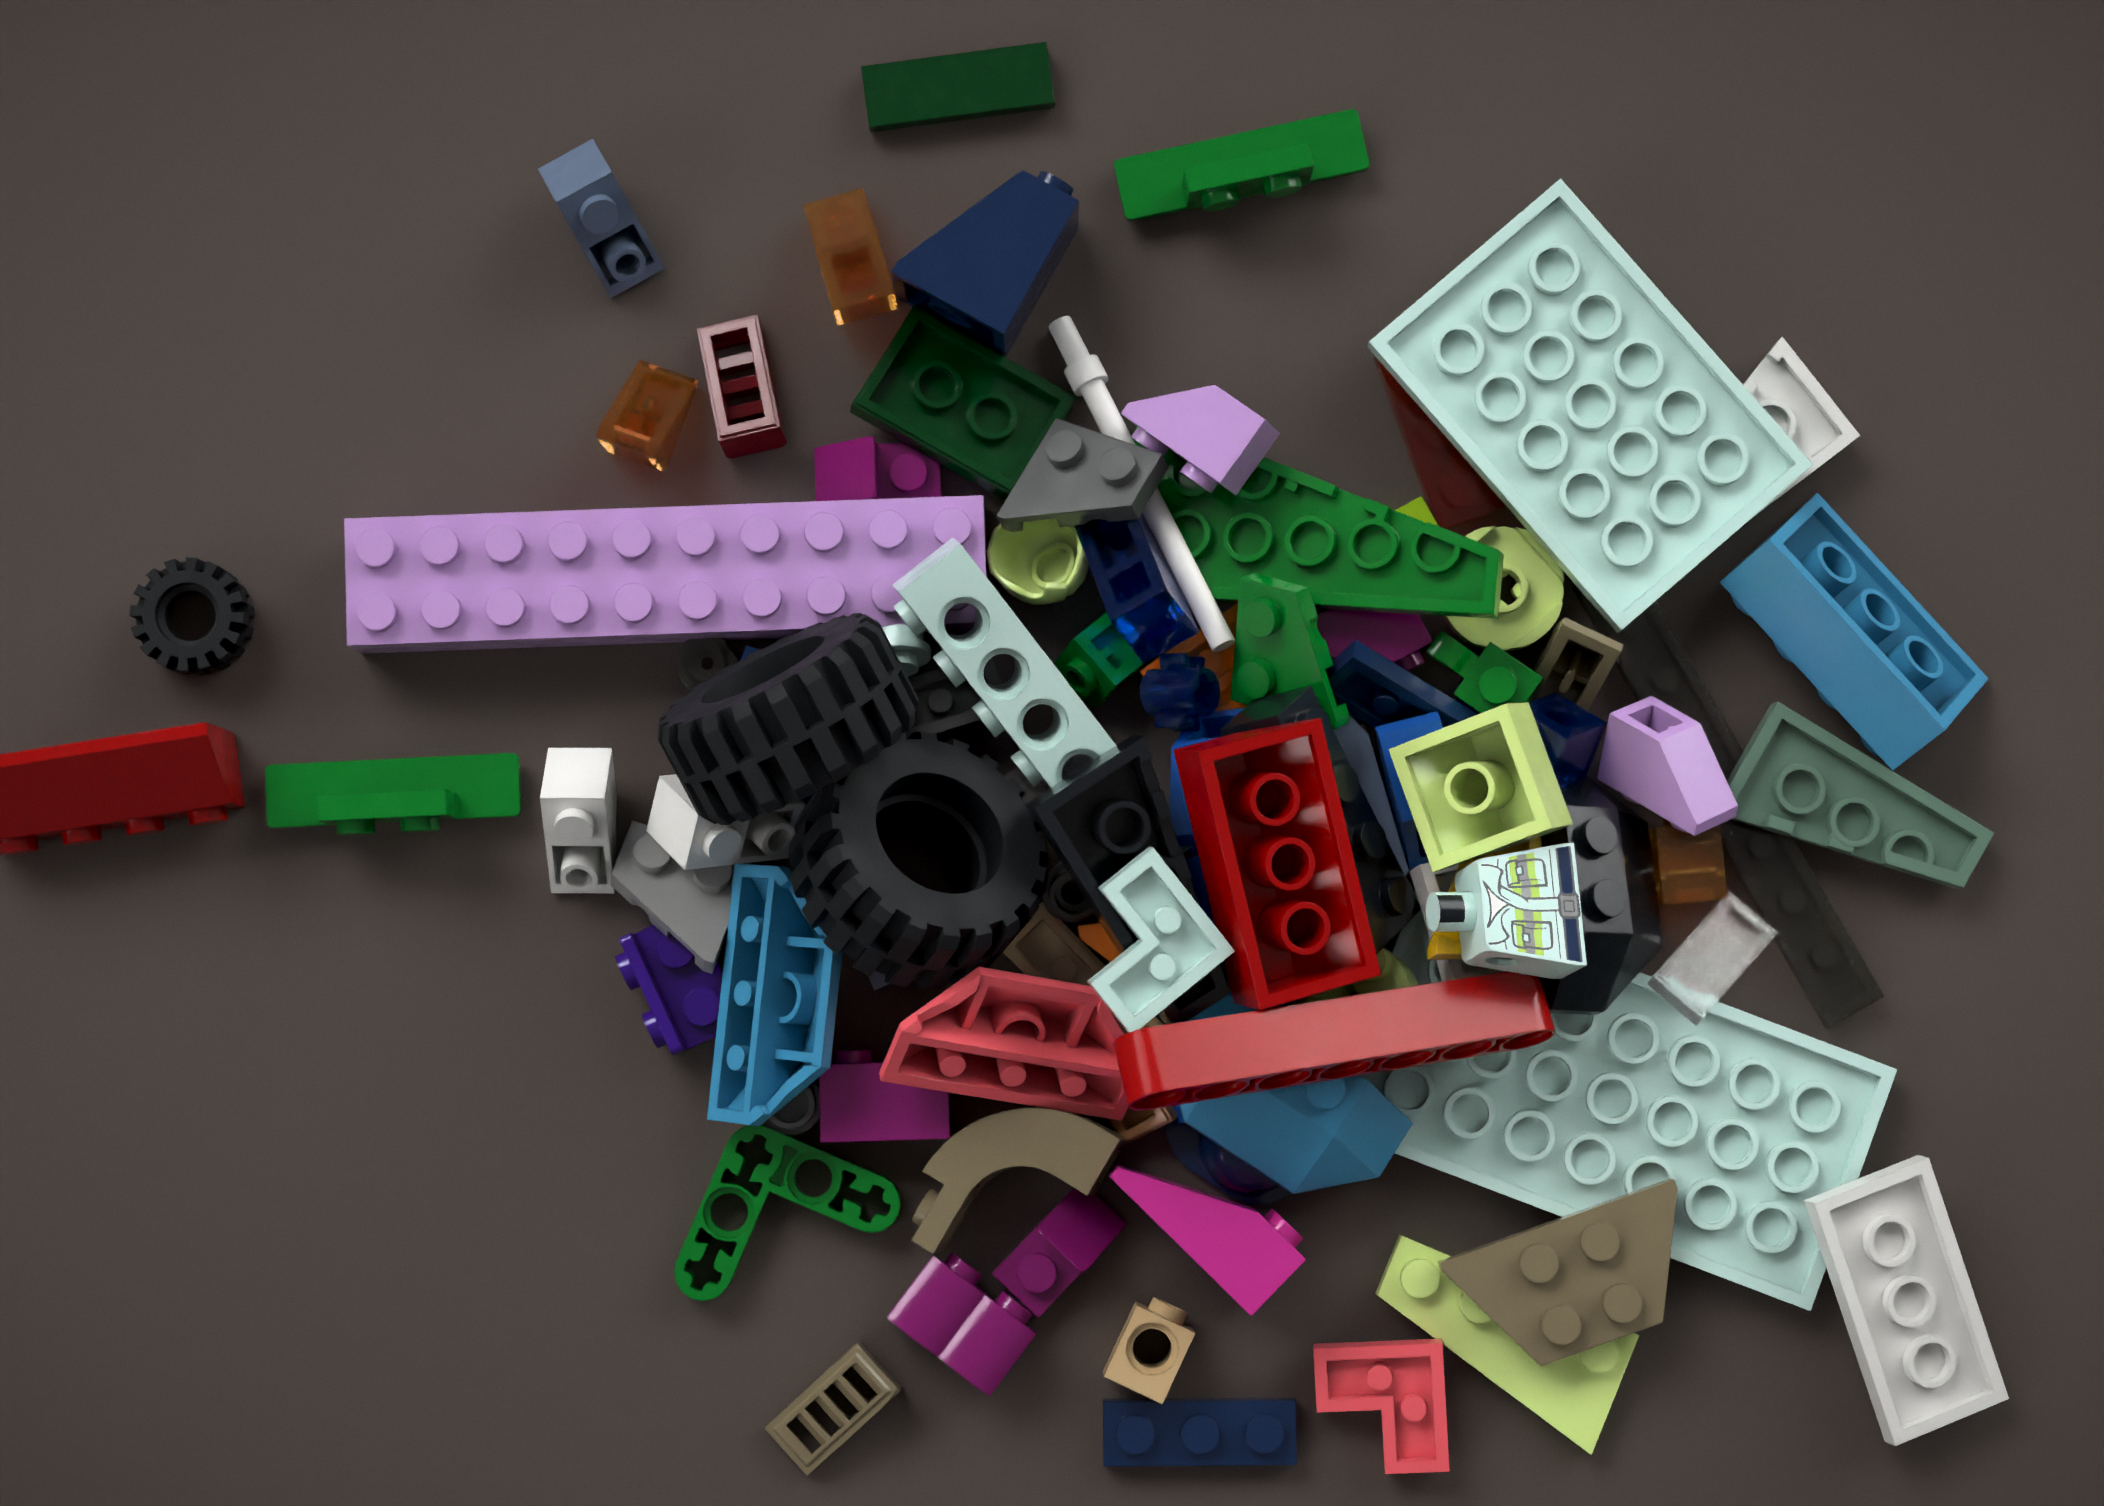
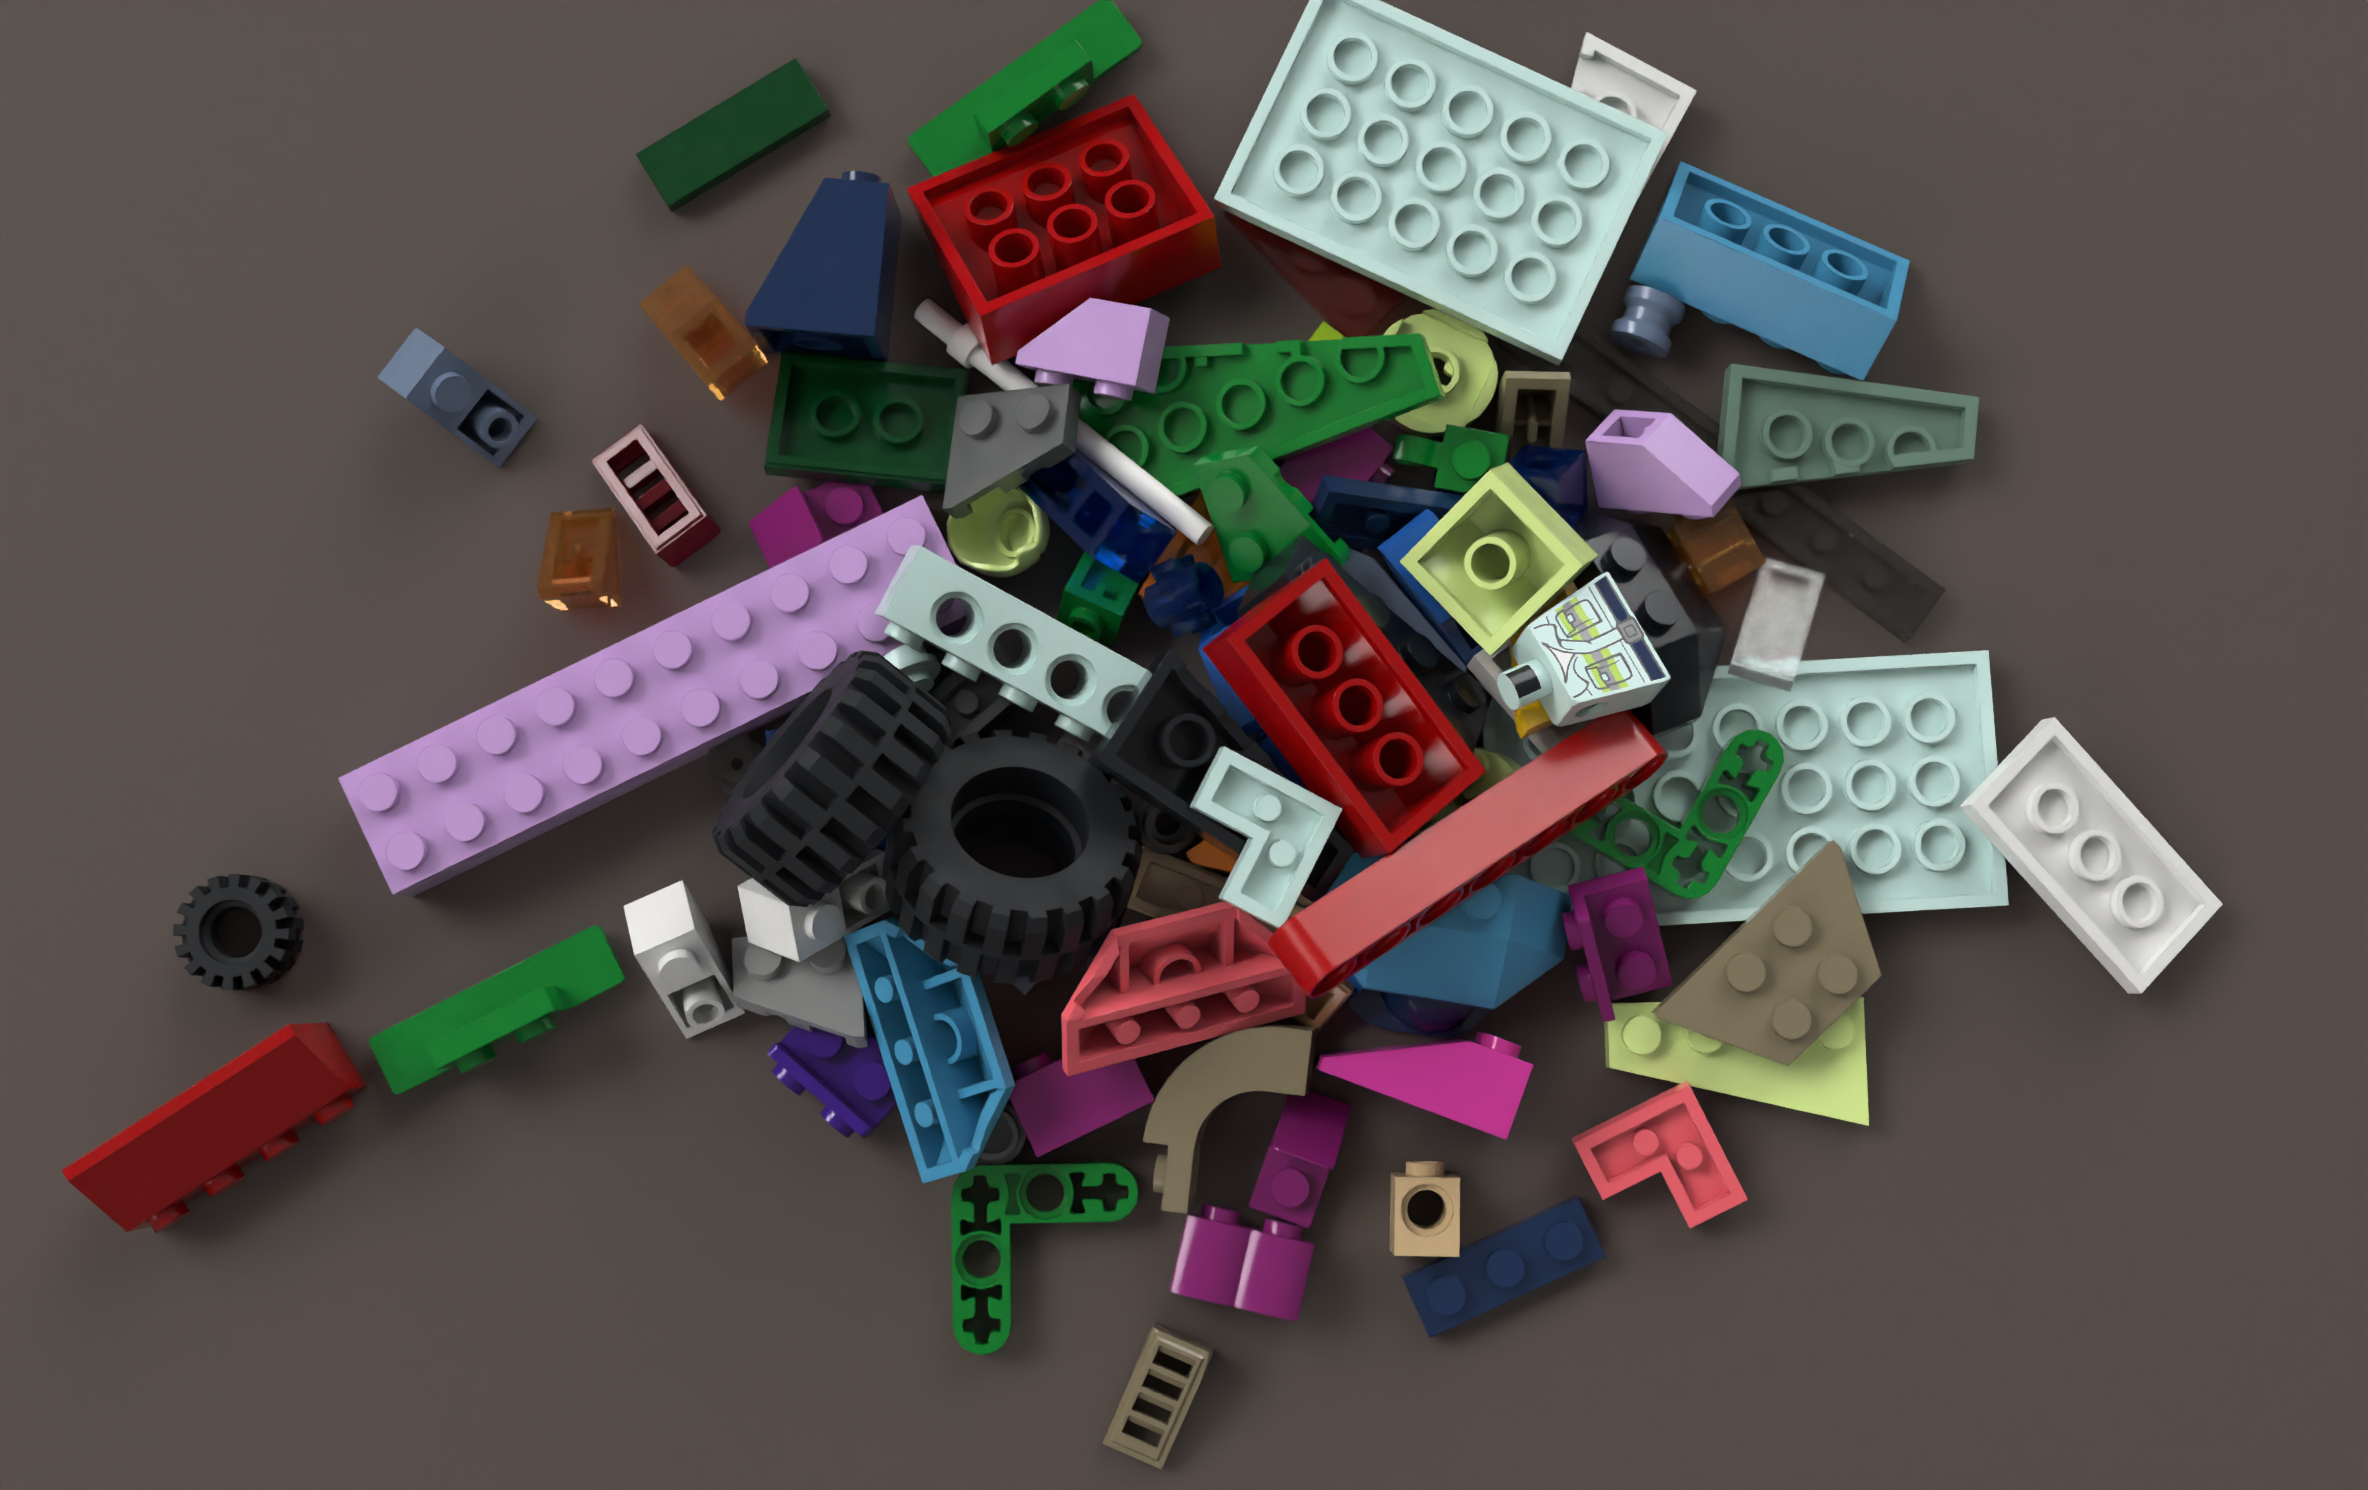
camera: 25 degrees left, 0 degrees up
(1224, 303) = (1064, 221): none -> red slope
(1437, 1180) = (1620, 938): none -> magenta bracket
(1524, 1114) = (1671, 842): none -> green beam
(1718, 627) = (1647, 321): none -> sand blue wheel

